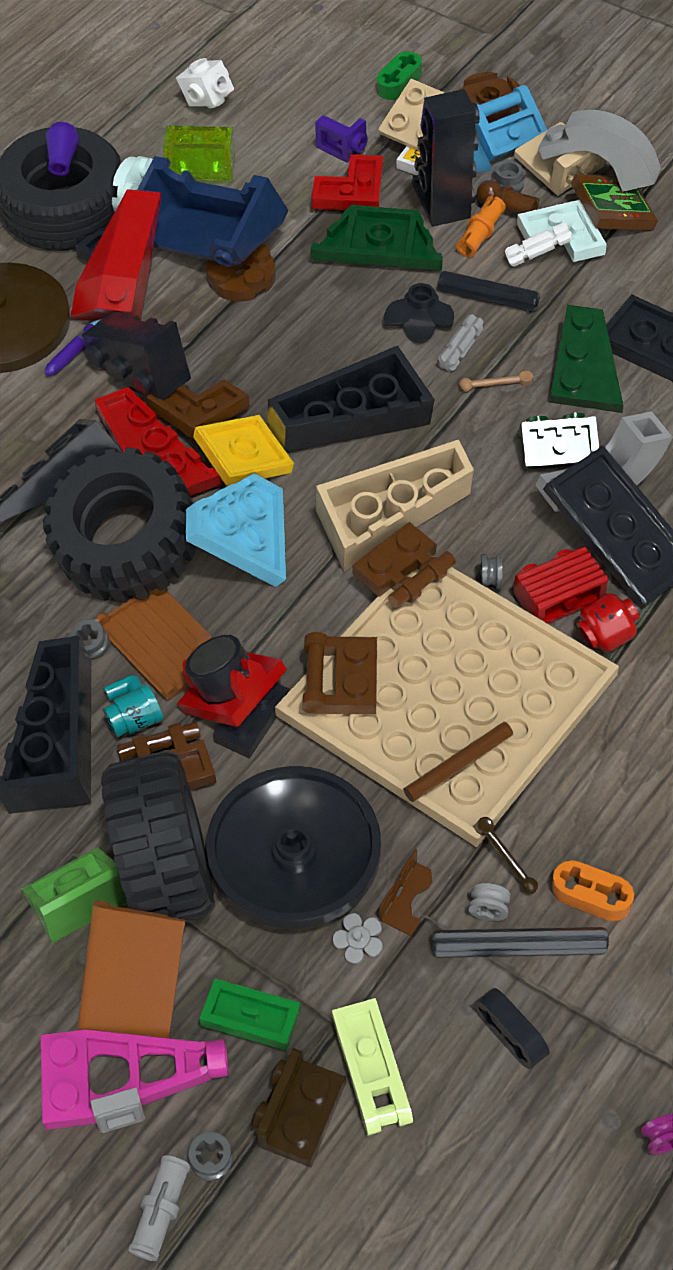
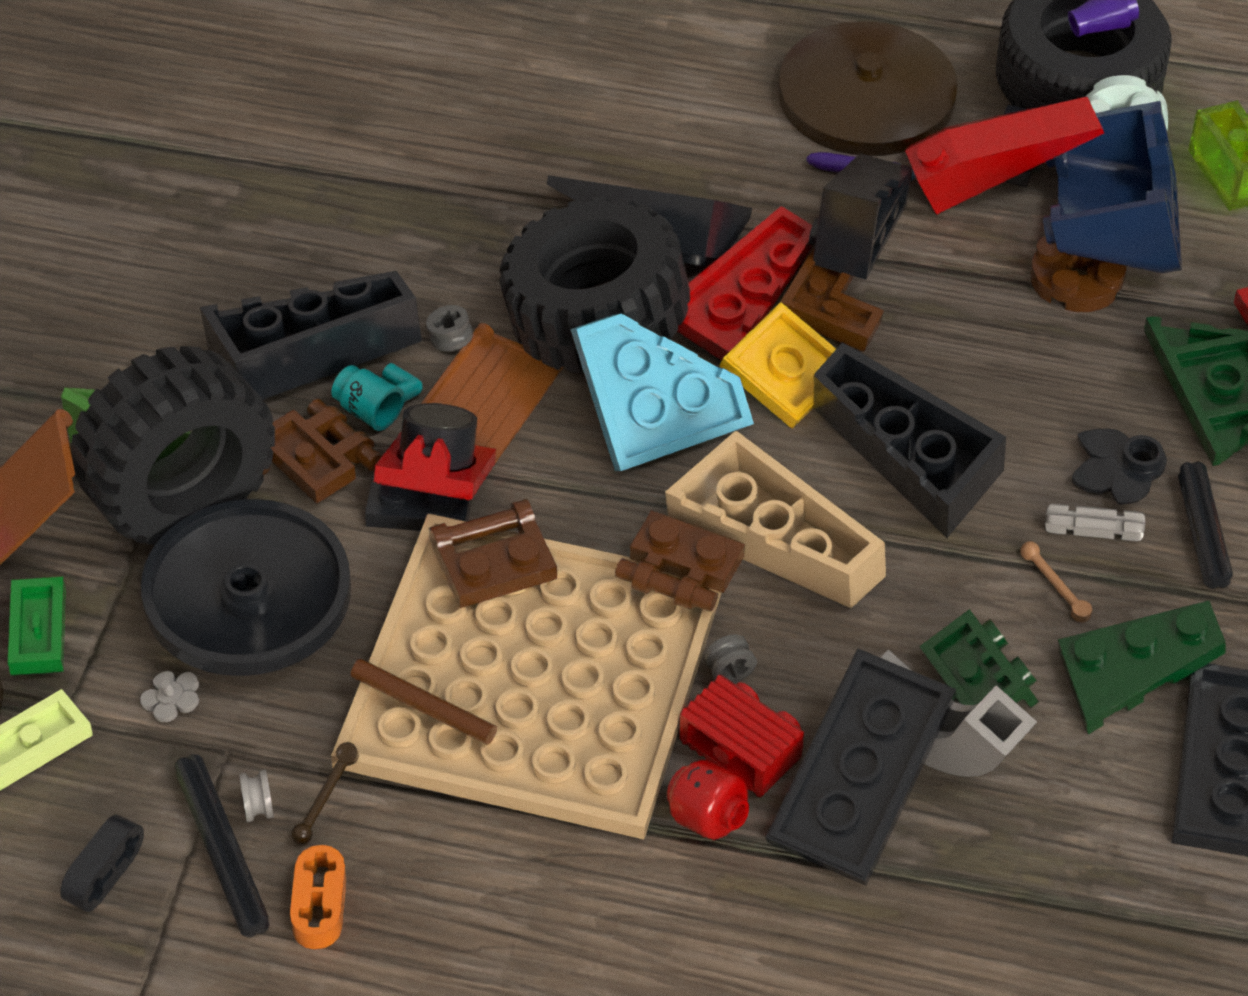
camera: 65 degrees right, 5 degrees down
(400, 912) = (222, 725): reddish brown piece -> none

